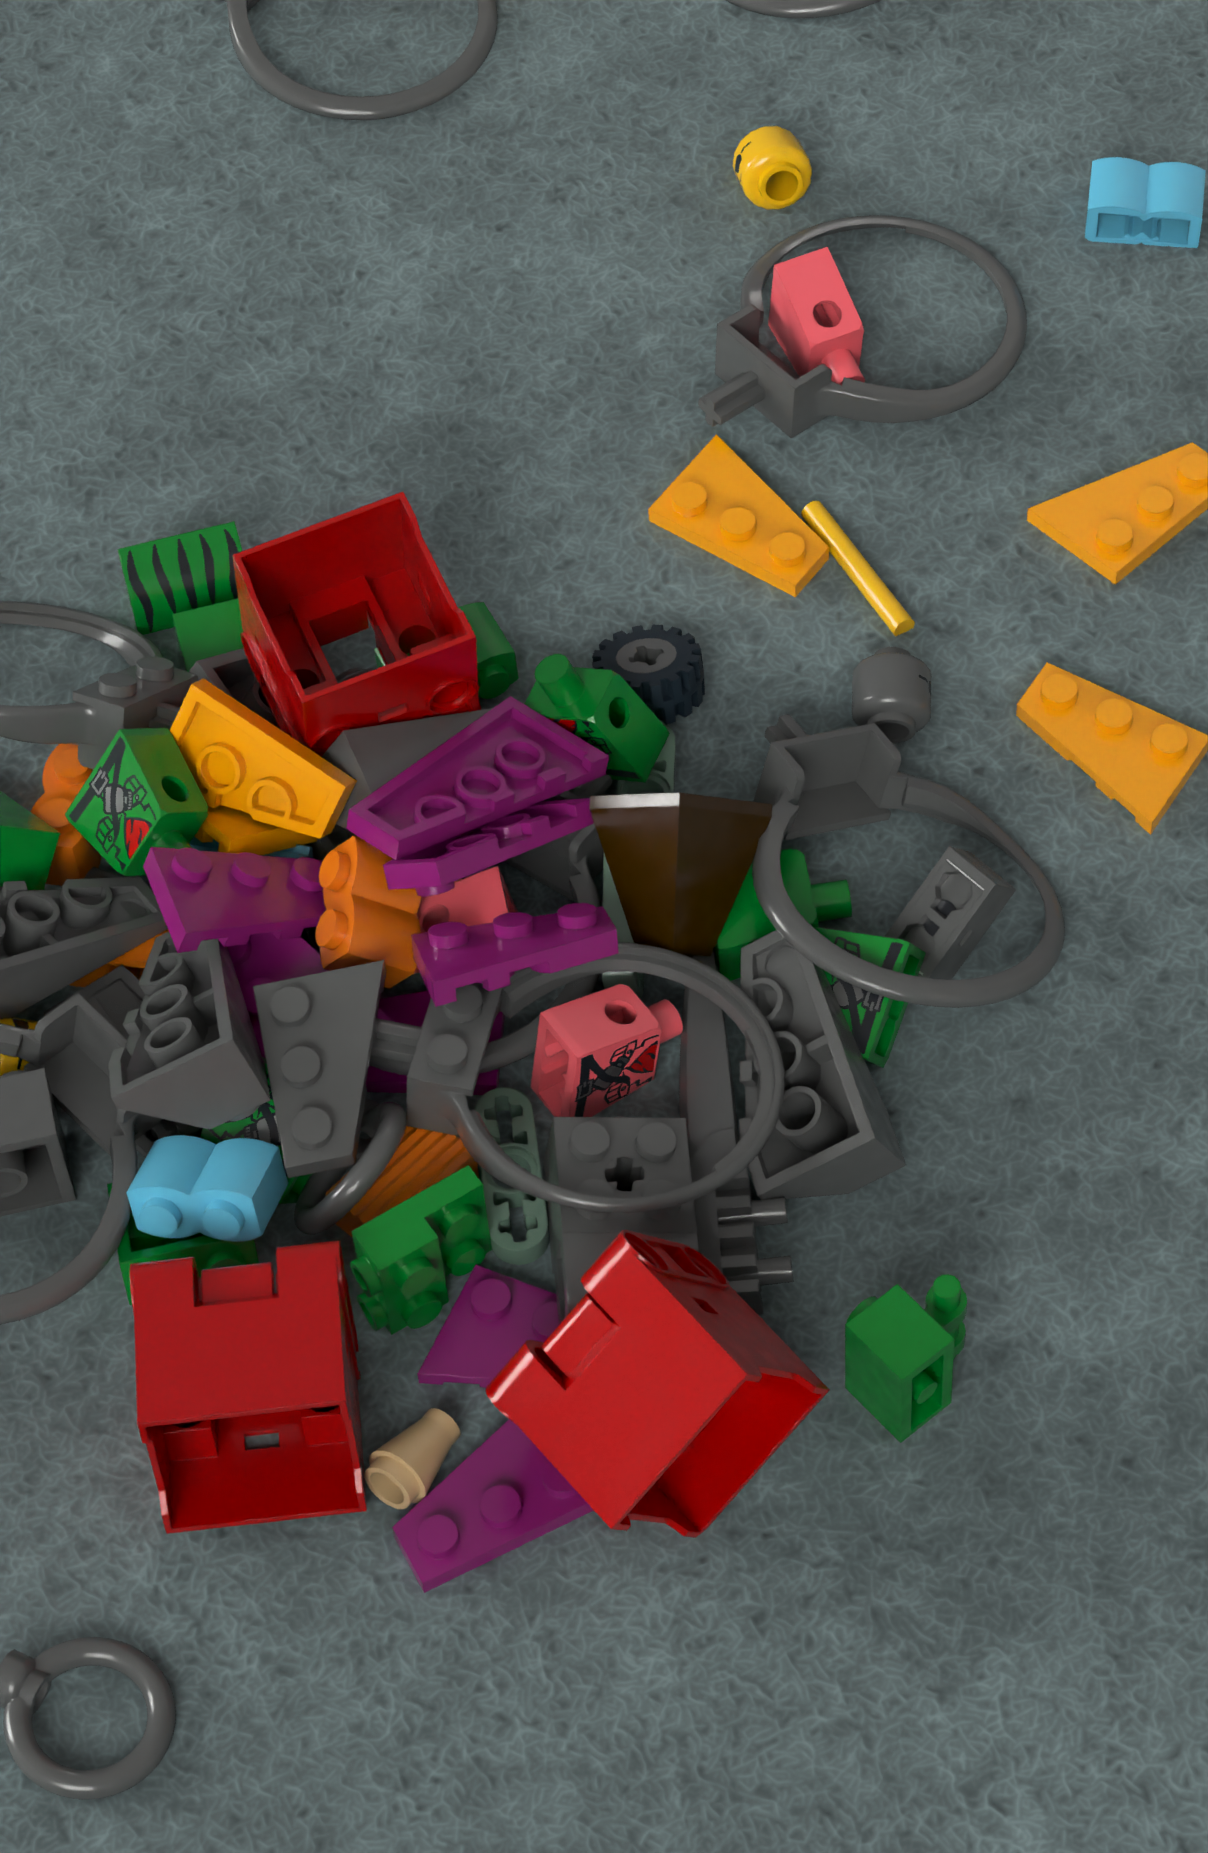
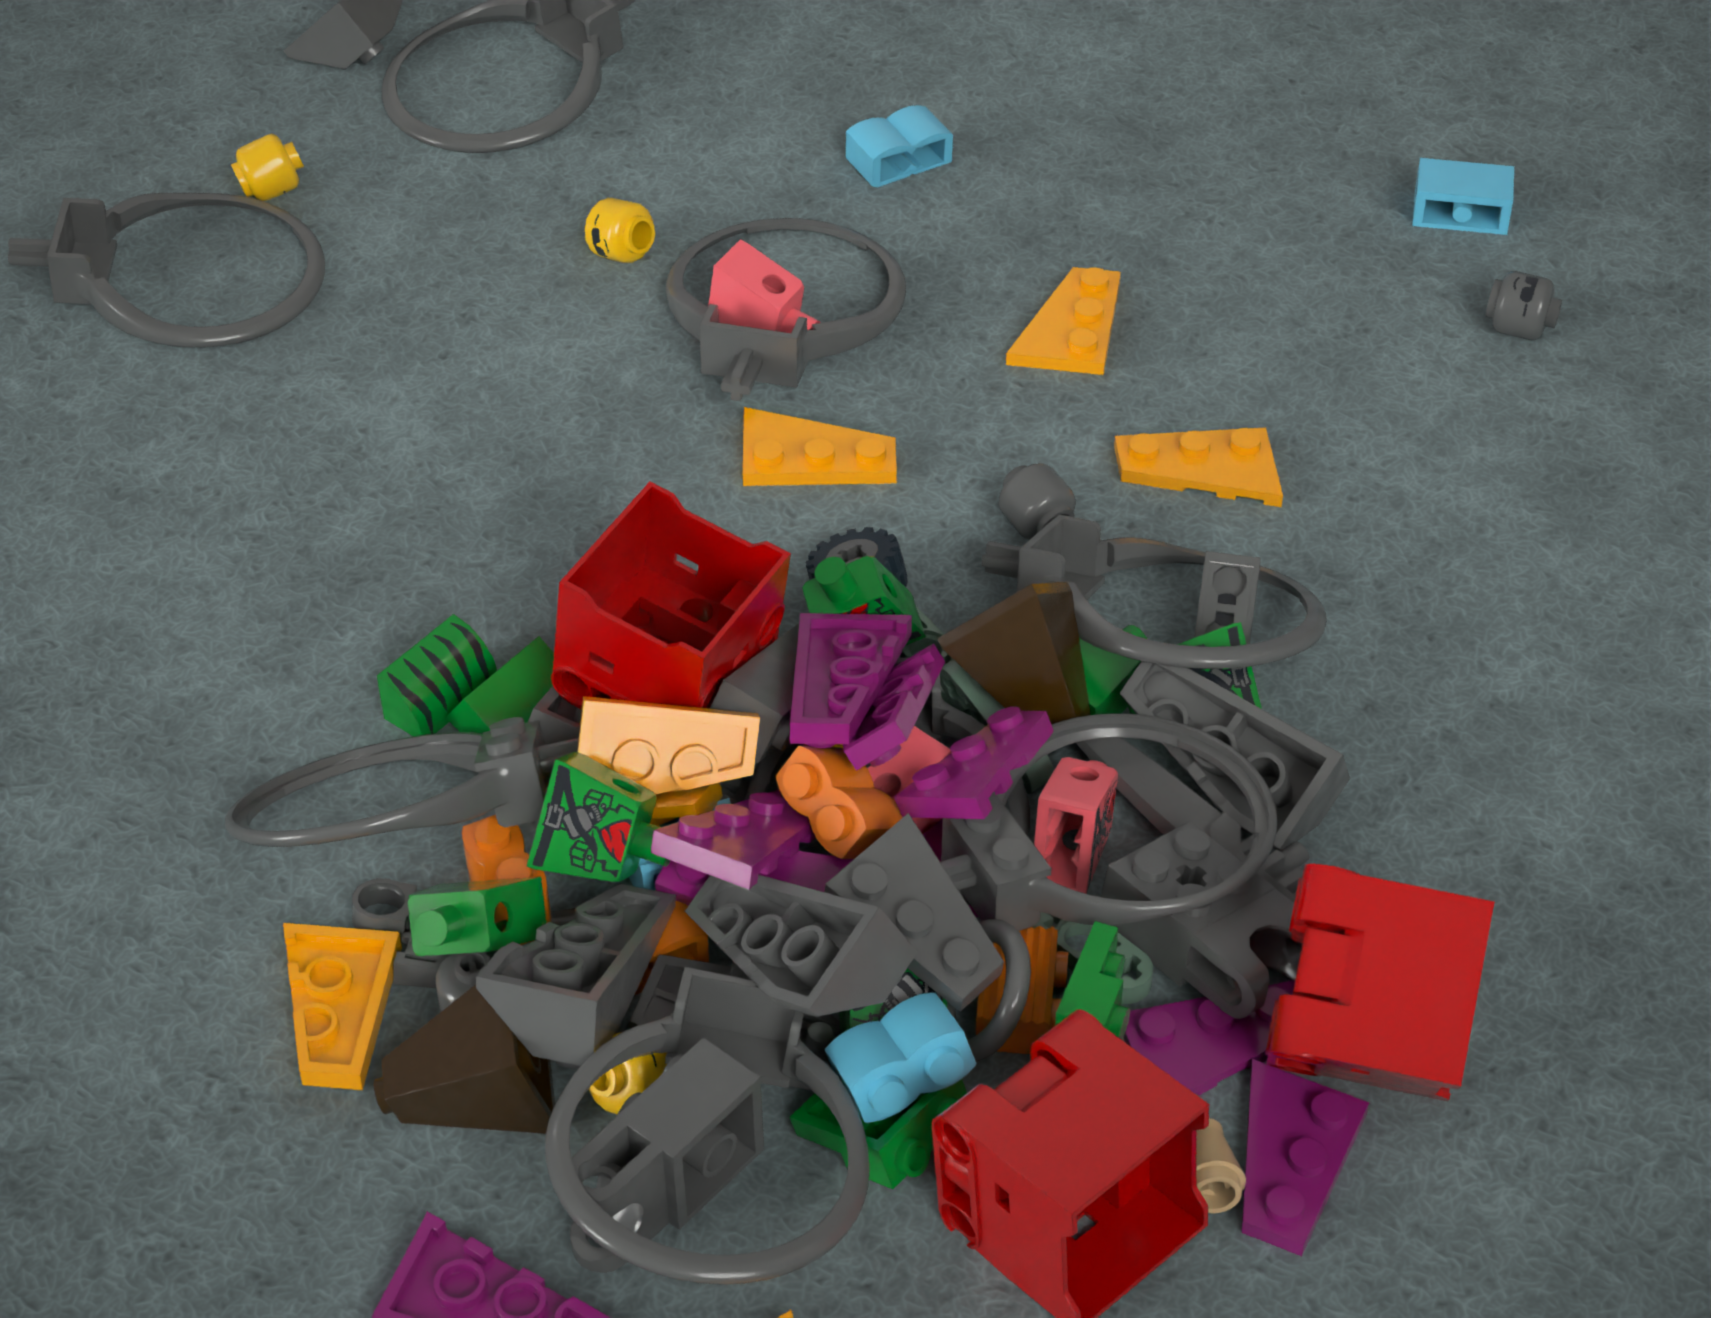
camera: 40 degrees left, 10 degrees down
(857, 568) = (929, 445): yellow bar -> none
(905, 1354) = (1495, 869): green brick -> none

